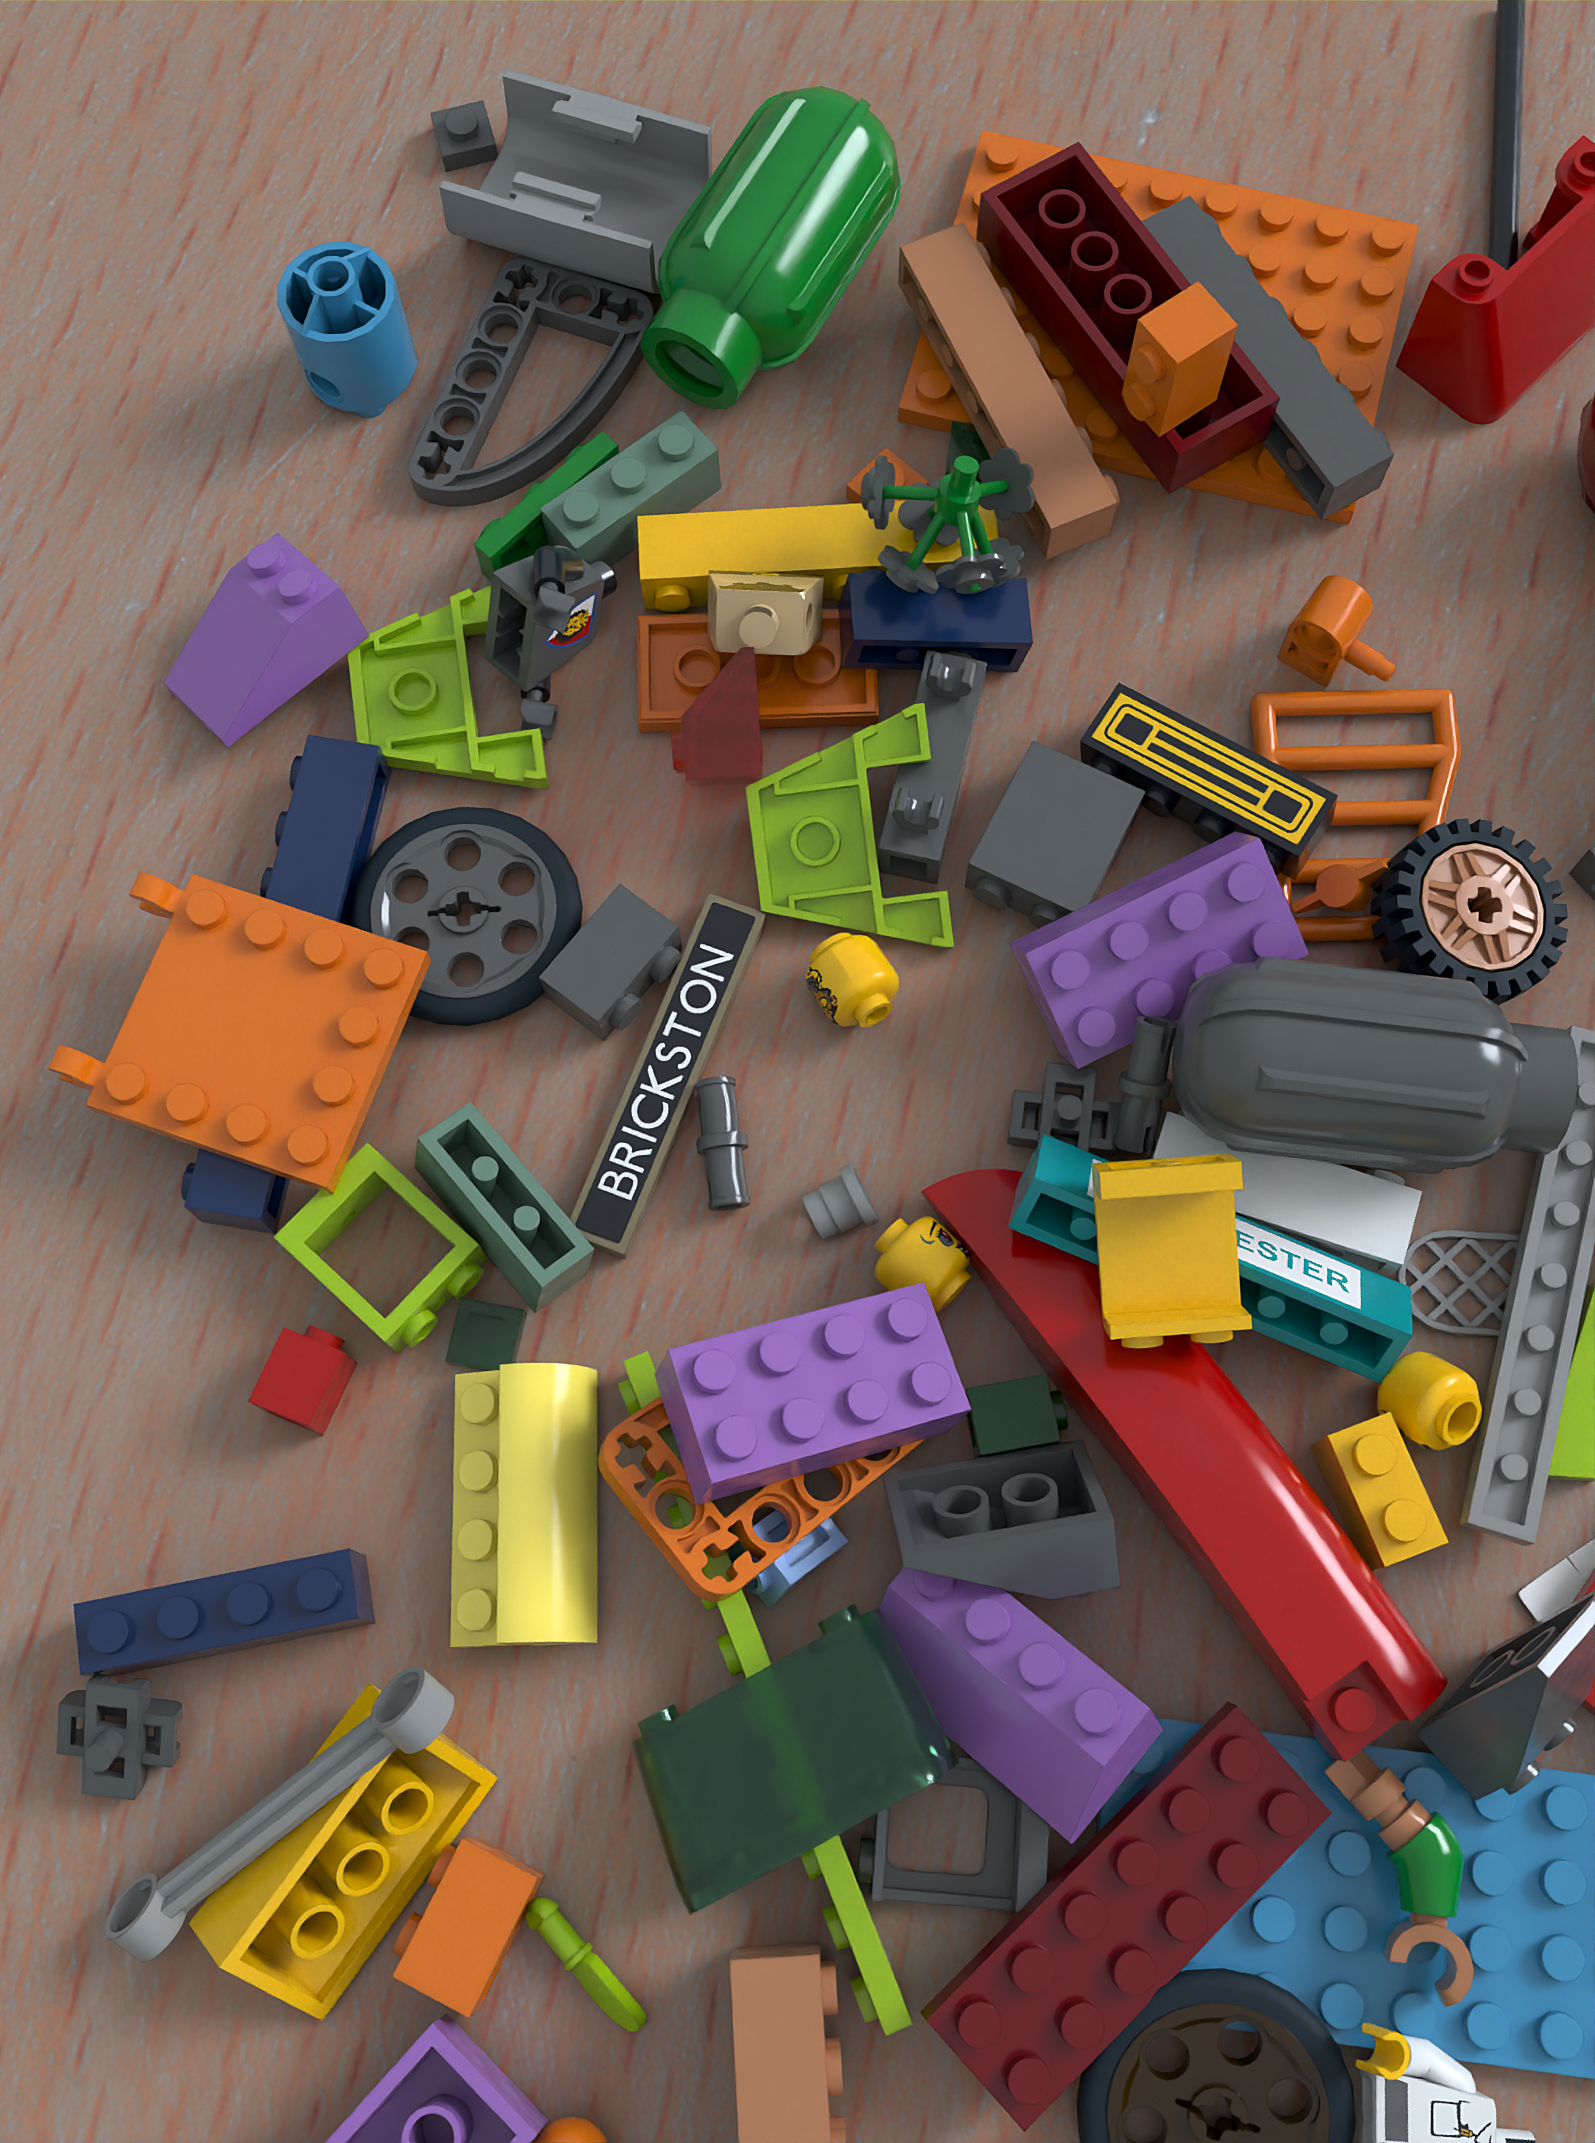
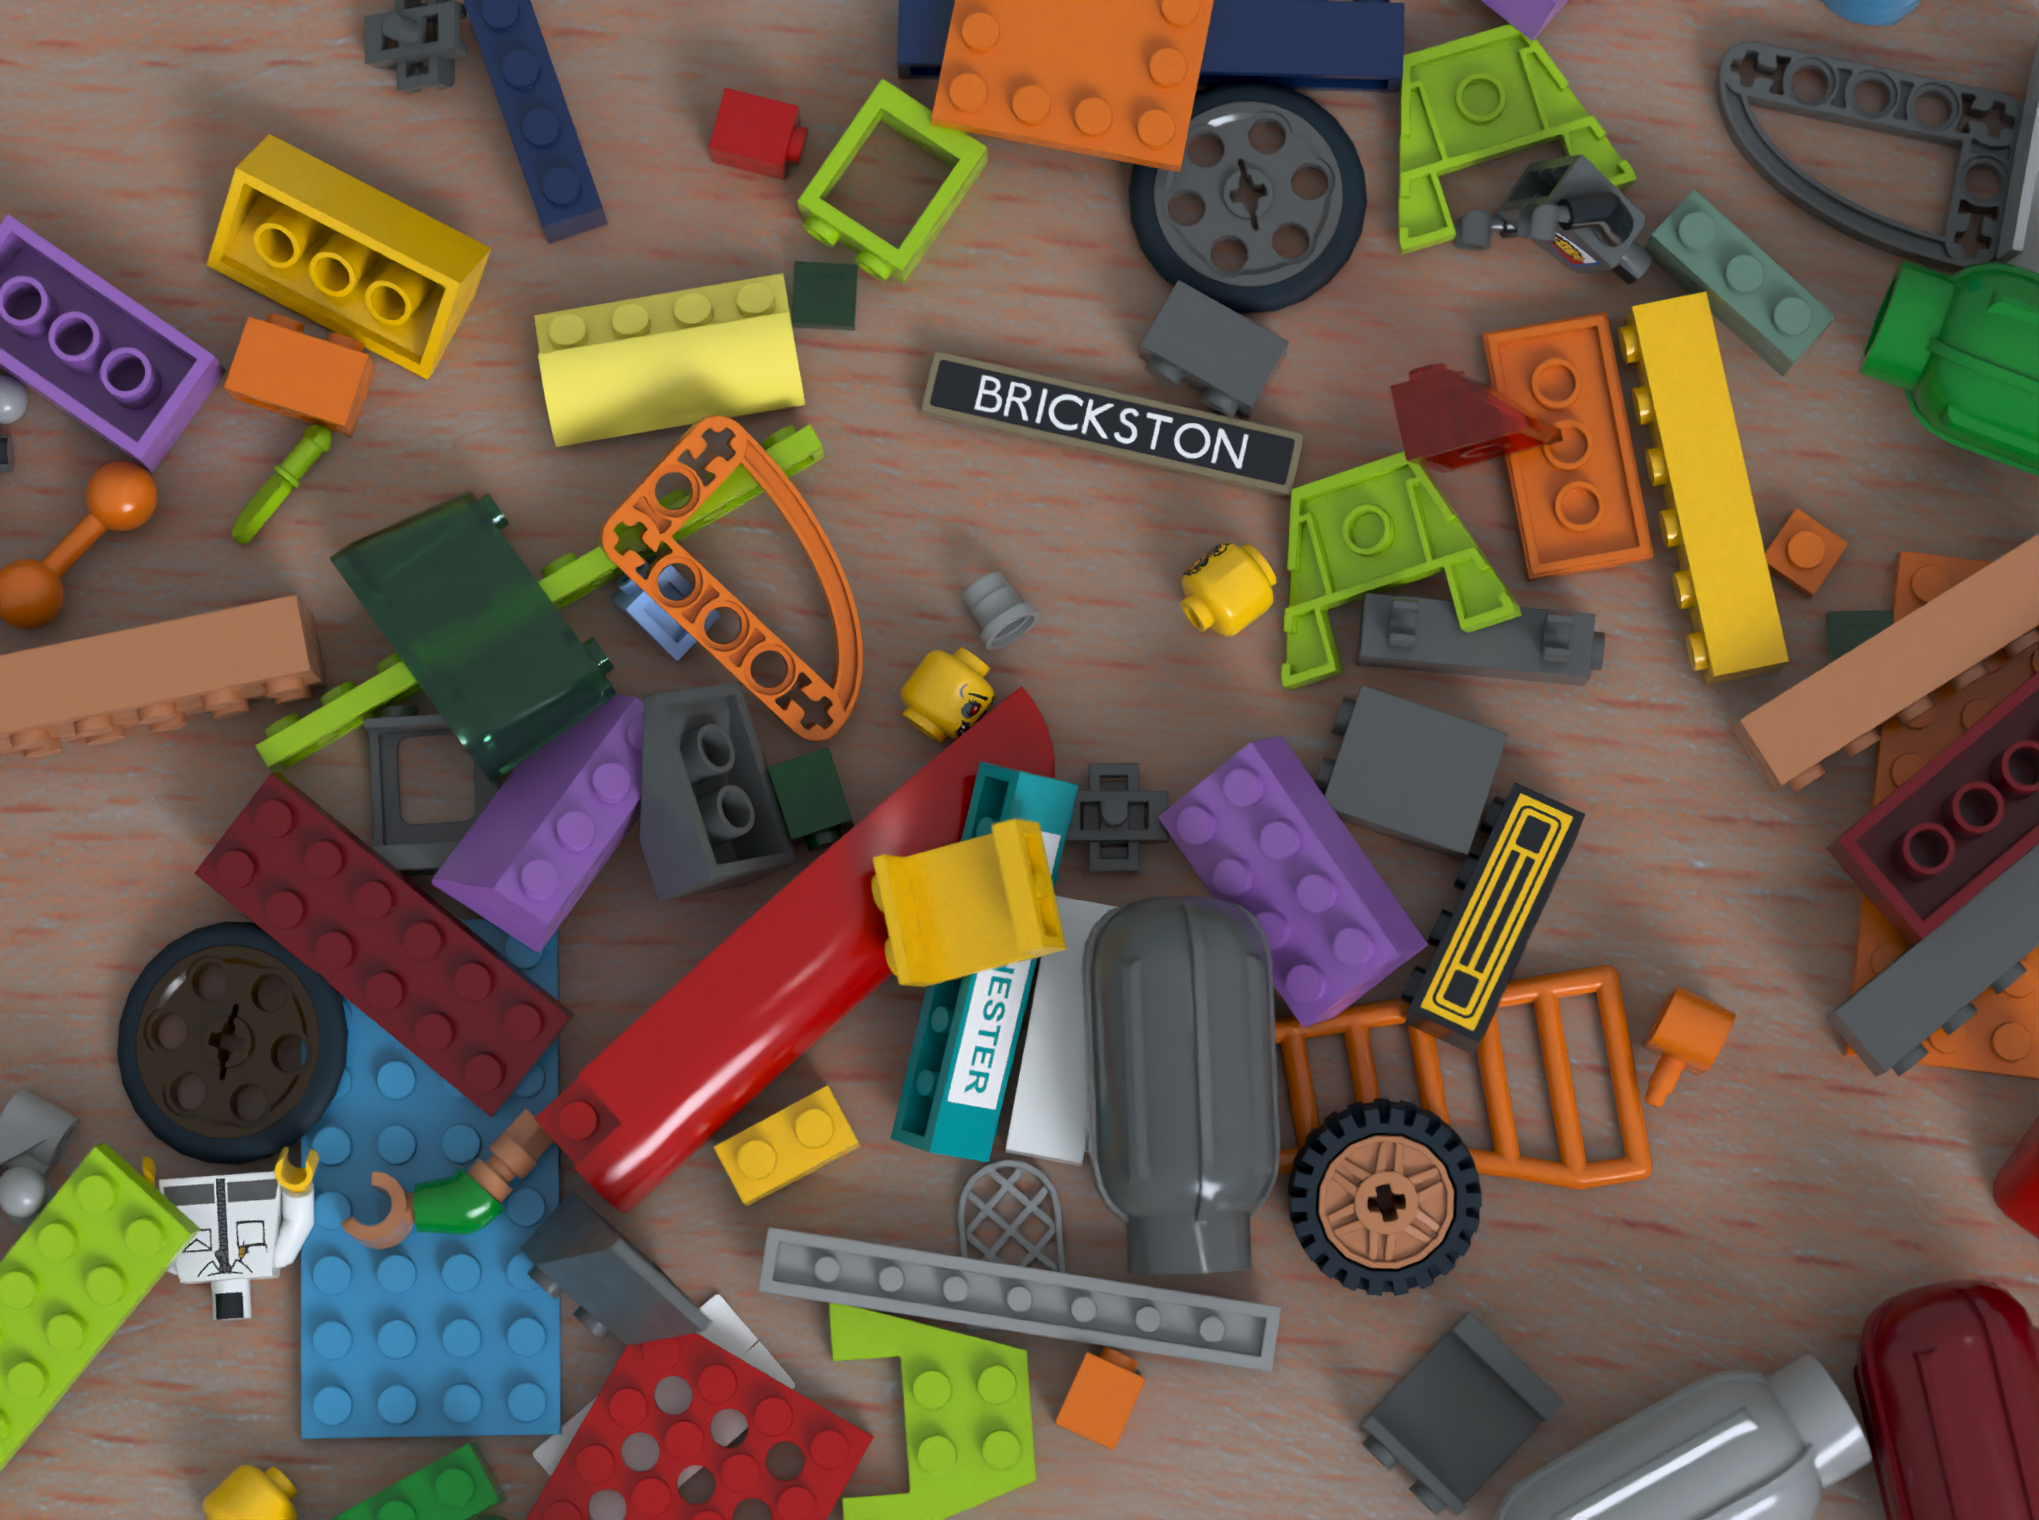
camera: 80 degrees right, 10 degrees up
(404, 1717) = (459, 283): light grey piece -> none
(502, 1207) = (944, 287): sand green brick -> none
(522, 528) = (1669, 165): green plate -> none
(722, 1143) = (1043, 487): dark grey pin -> none
(764, 611) = (1604, 440): tan torso -> none
(810, 1392) = (797, 598): medium lavender brick -> none
(896, 627) = (1638, 618): dark blue brick -> none
(950, 512) = (1731, 605): dark grey plant -> none
(1145, 1084) = (1147, 879): dark grey pin -> none
(1178, 359) = (1913, 811): orange brick -> none
(1342, 888) = (1393, 1065): orange piece -> none
(1430, 1401) = (880, 1186): yellow head -> none

